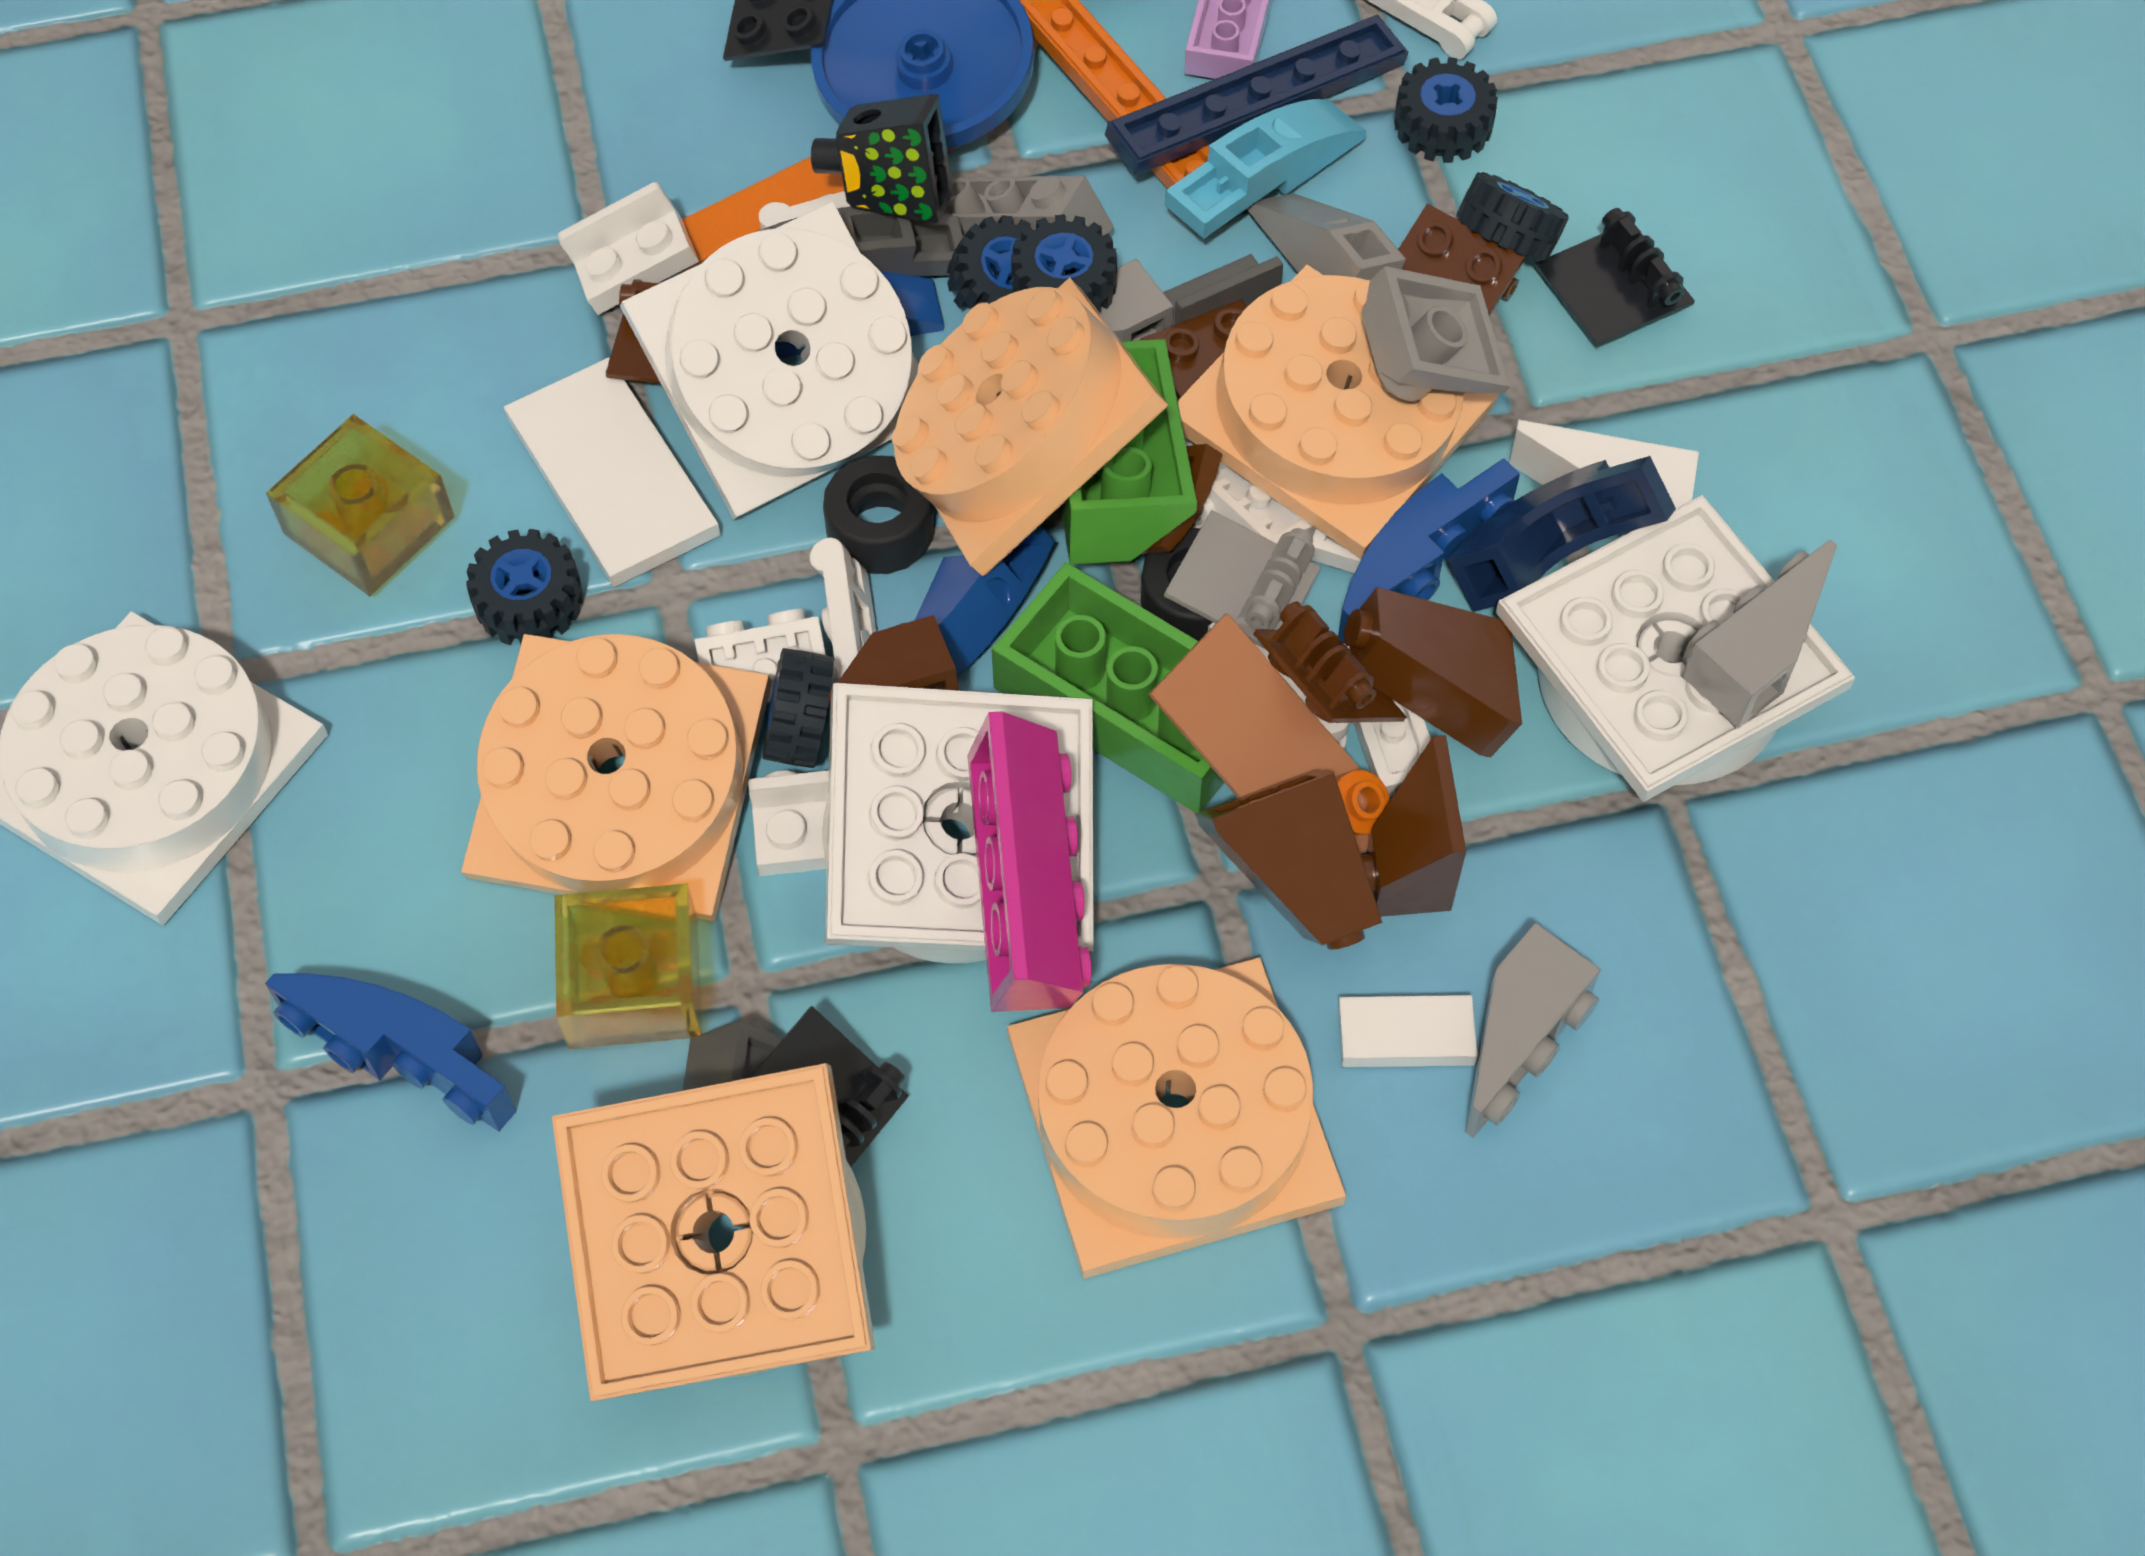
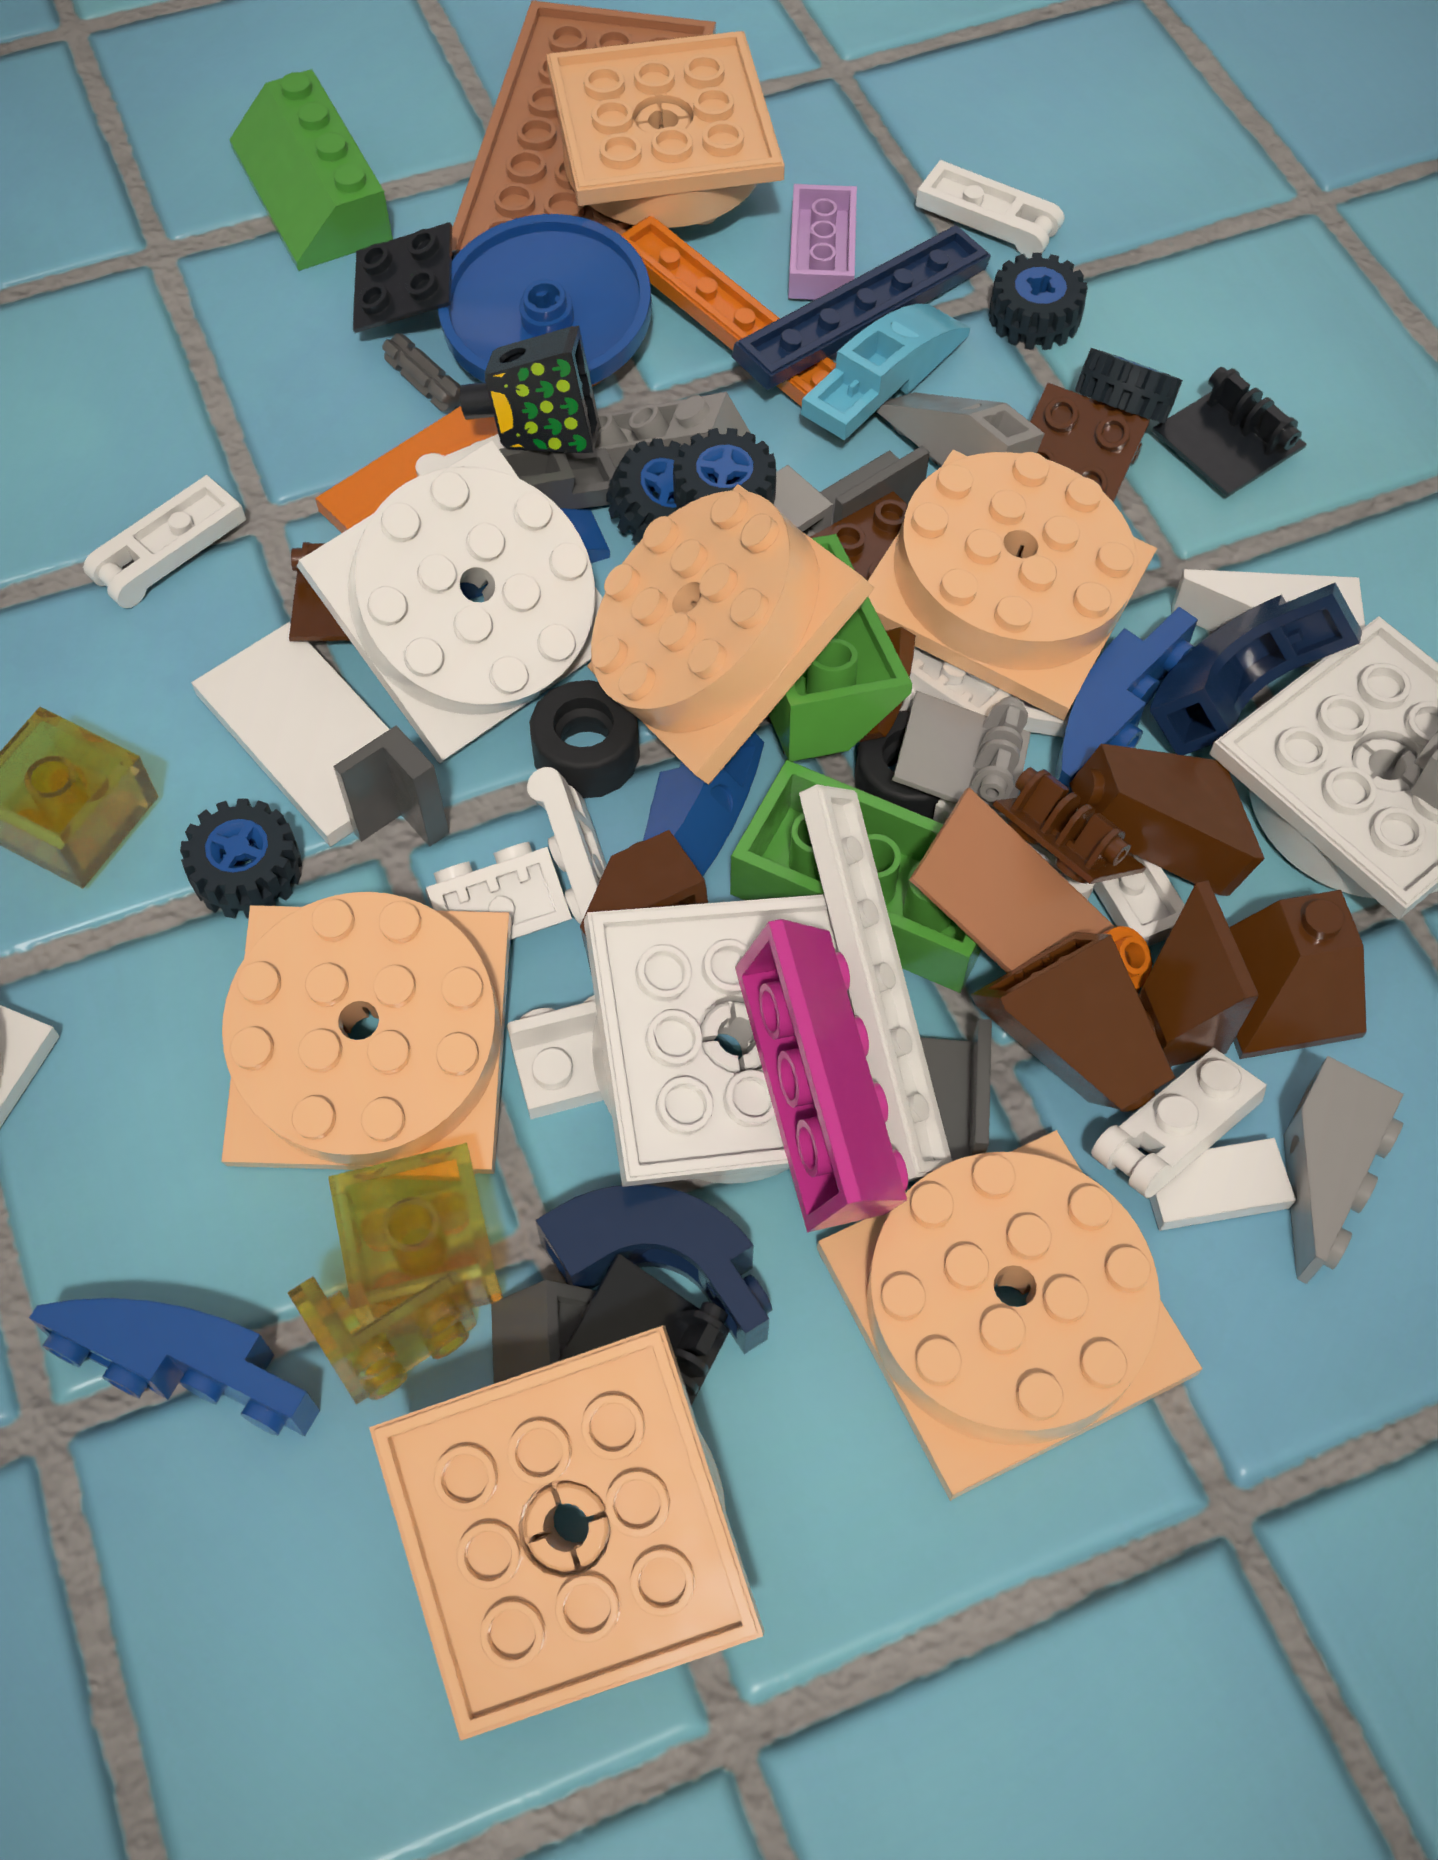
camera: 10 degrees left, 0 degrees up
(494, 258) = (163, 541): none -> white plate
(591, 1054) = (377, 1356): none -> clear yellow bracket
(626, 242) = (290, 507): white bracket -> none
(677, 532) = (388, 782): none -> dark grey panel
(786, 109) = (422, 372): none -> flat silver axle
(798, 708) = (545, 942): black wheel -> none
(858, 995) = (661, 1231): none -> dark blue arch
(1102, 784) = (876, 976): none -> white tile
(1165, 910) = (962, 1088): none -> dark grey panel
(1380, 967) = (1180, 1122): none -> white plate
(1431, 335) = (1101, 495): light grey slope -> none
(1530, 844) = (1306, 973): none -> reddish brown slope

